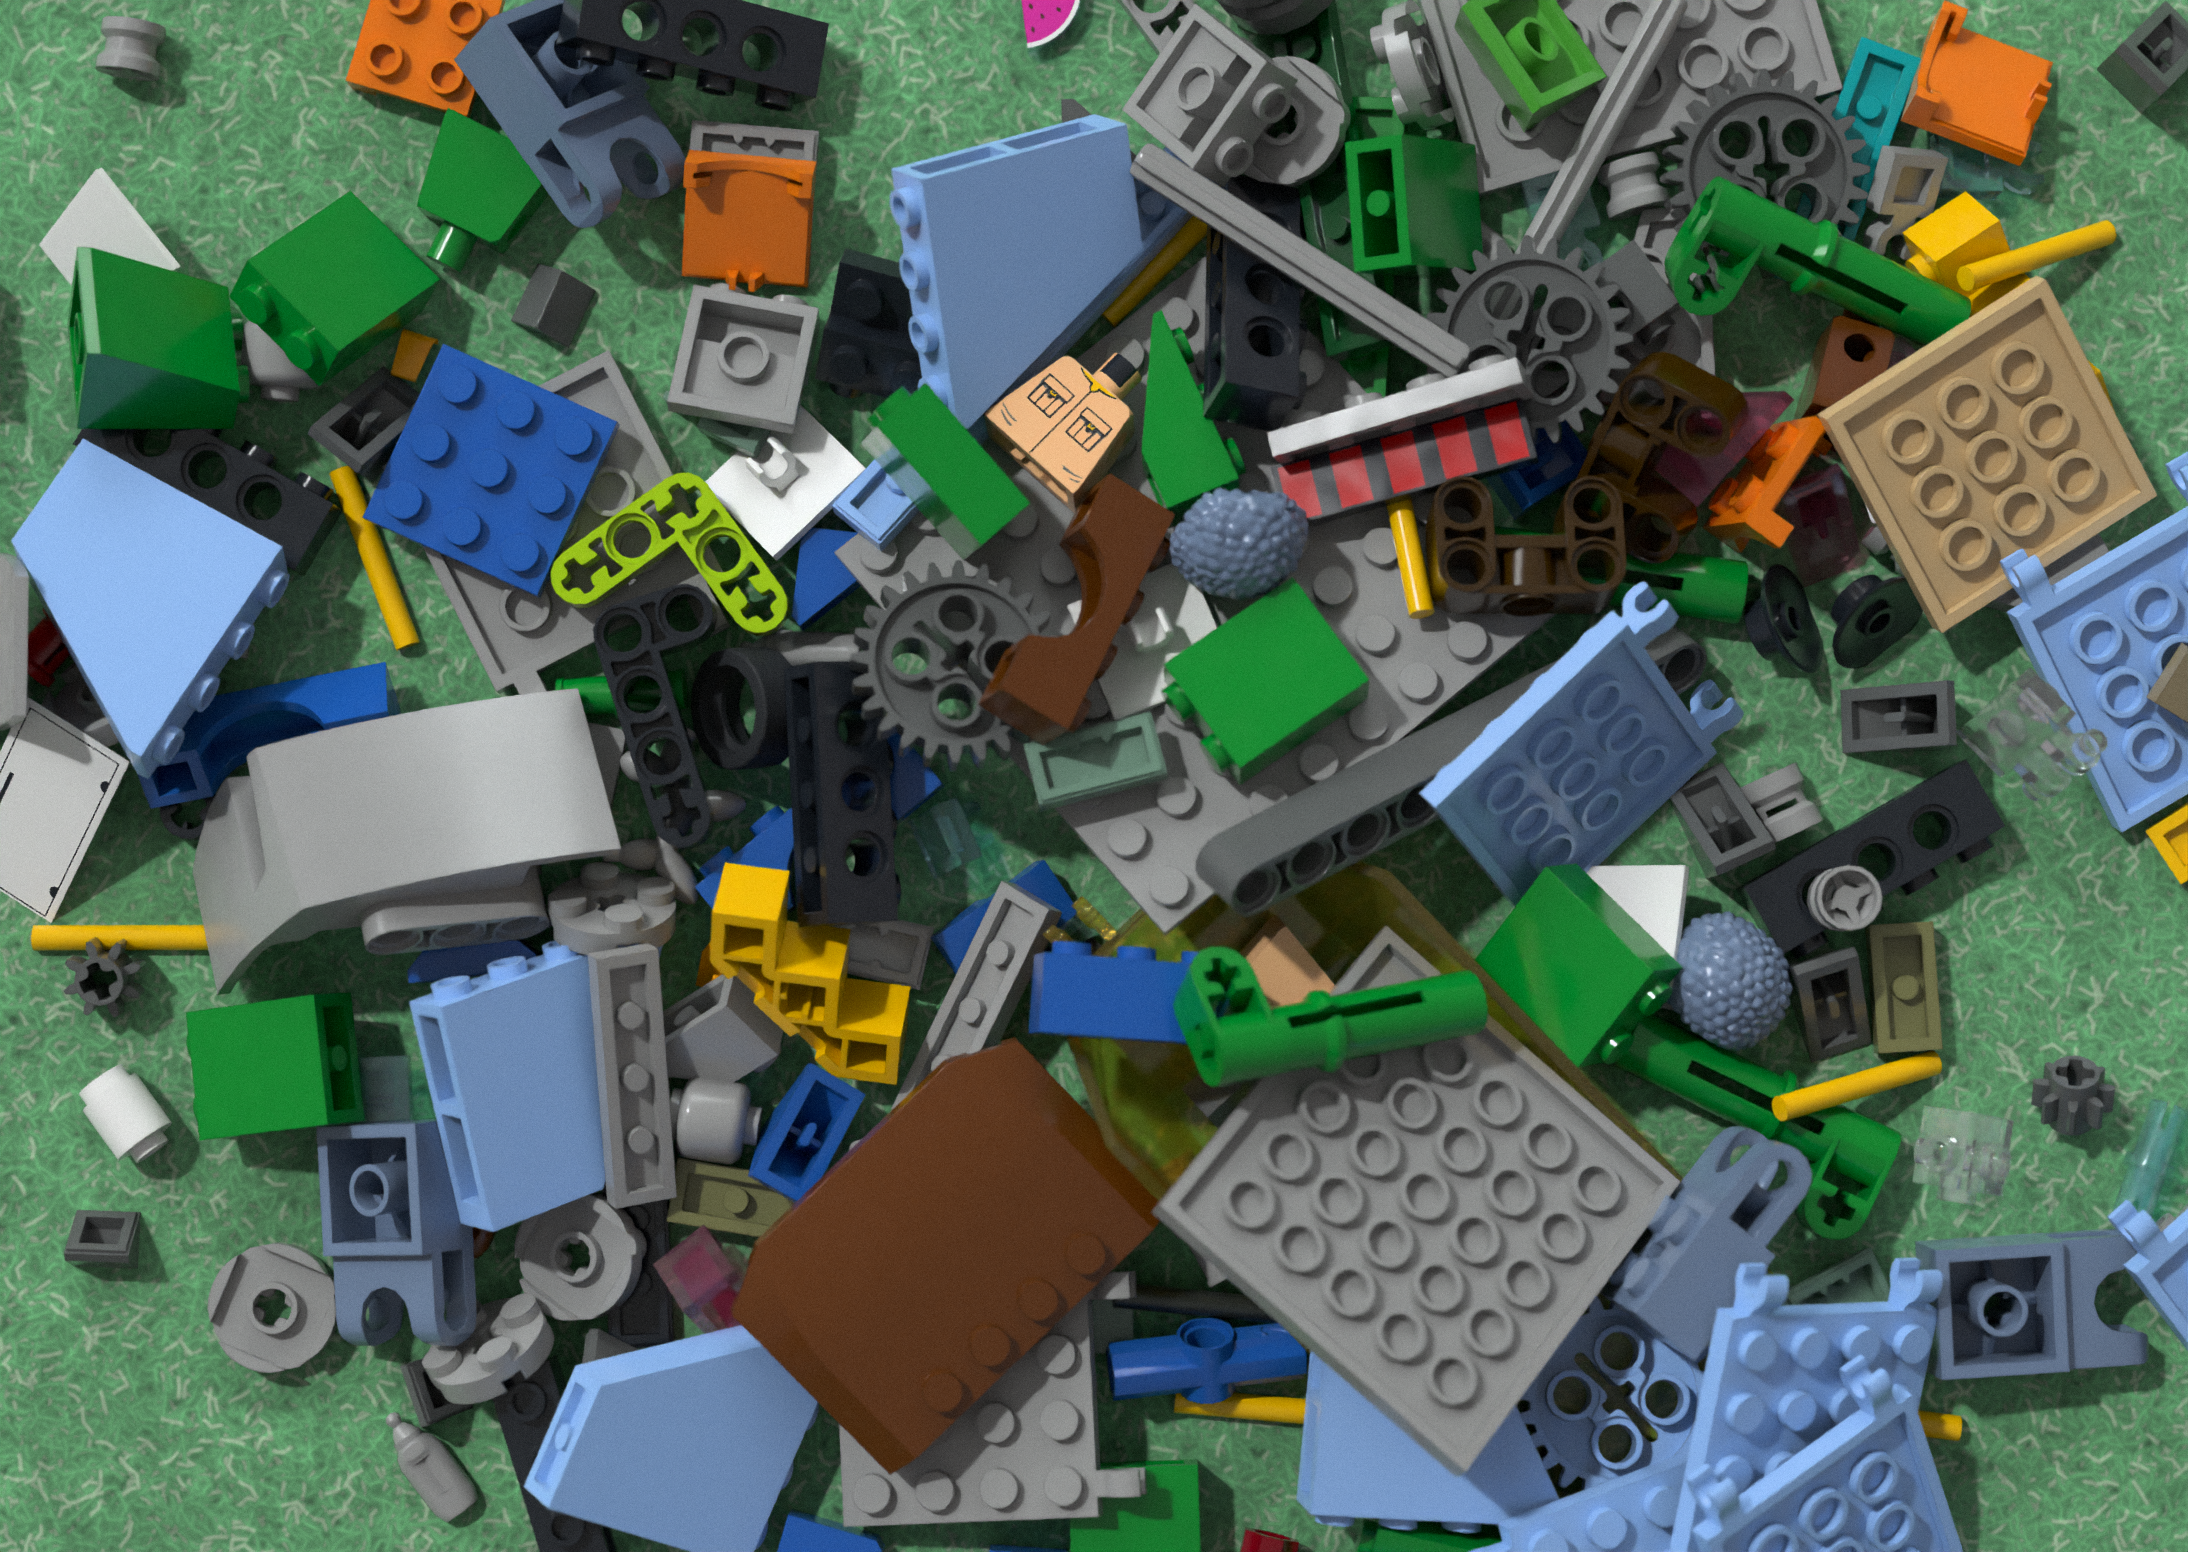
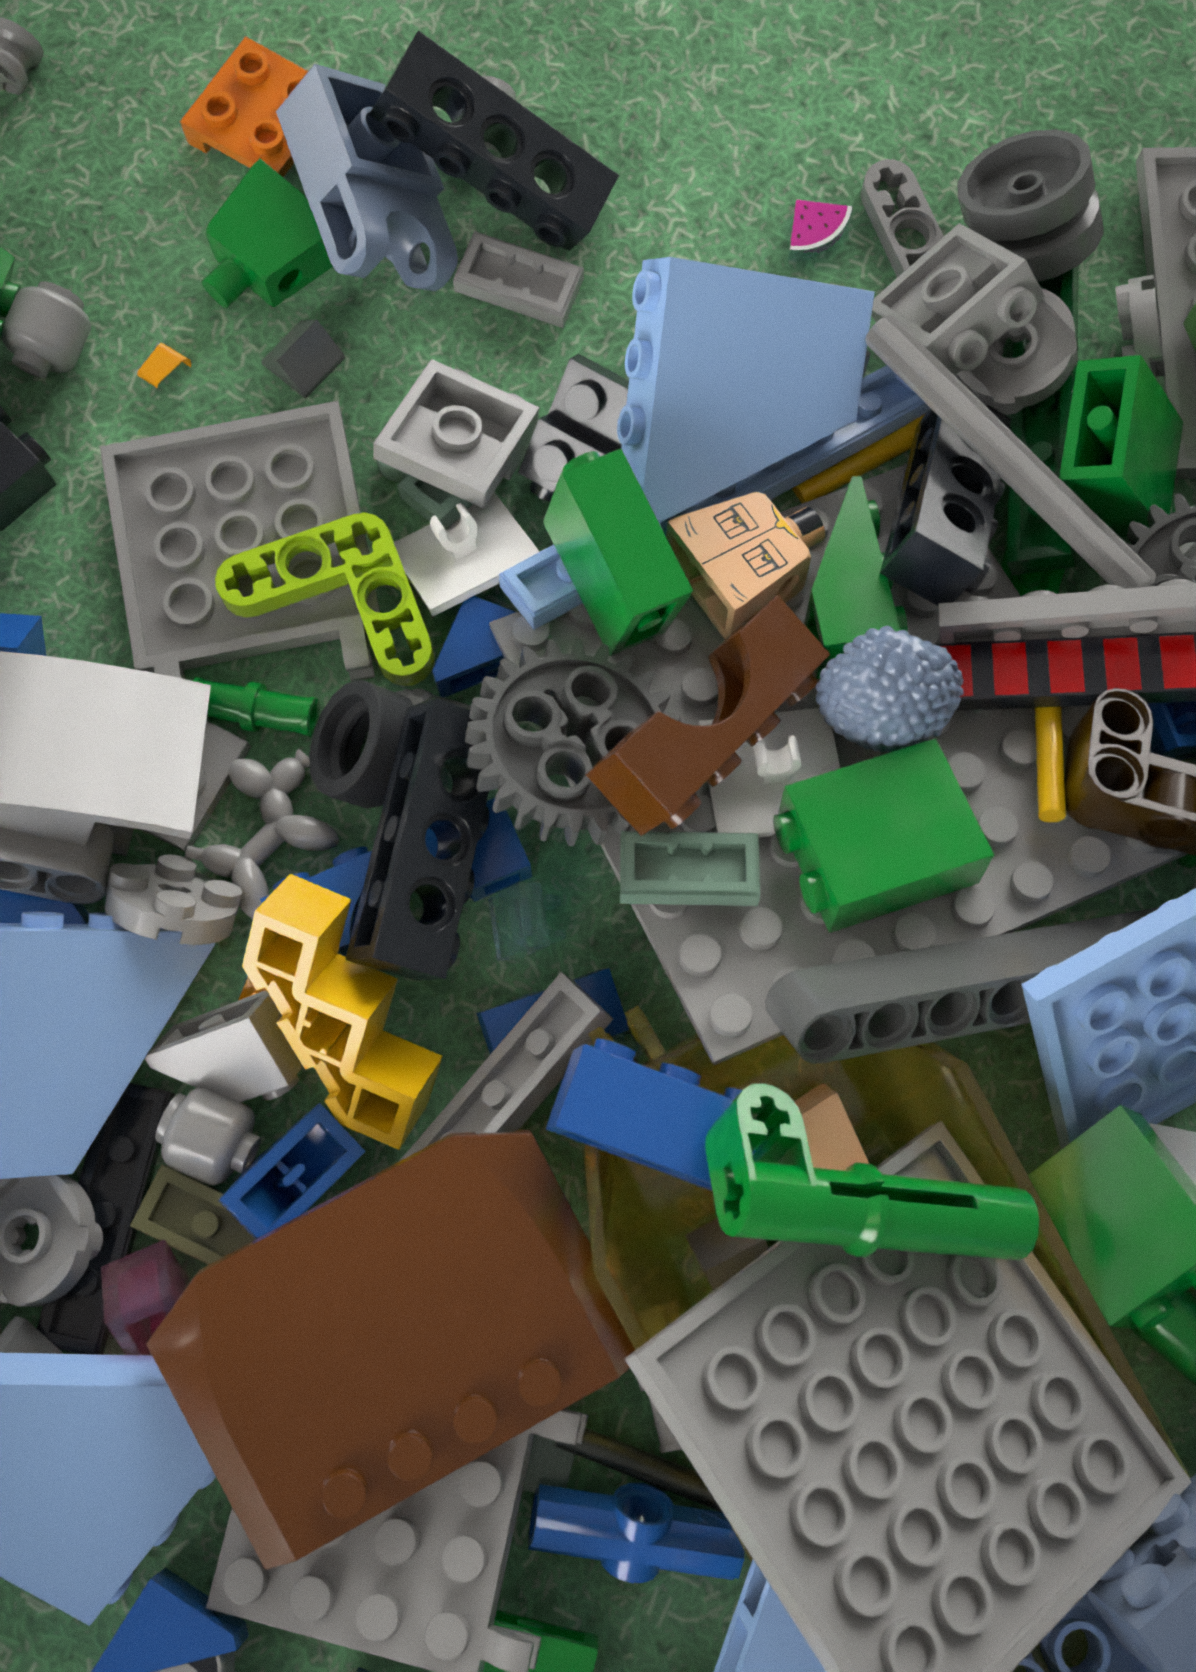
camera: 15 degrees right, 10 degrees down
(333, 288) = (103, 275): green brick -> none
(367, 423) = (101, 408): dark grey slope -> none
(374, 558) = (69, 530): yellow bar -> none
(491, 471) = (195, 472): blue plate -> none
(632, 1075) = (134, 1065): light grey plate -> none
(666, 721) = (279, 731): black beam -> none
(748, 219) = (499, 320): orange piece -> none
(890, 951) = (432, 1015): light grey plate -> none
(1247, 1407) = (673, 1597): yellow bar -> none

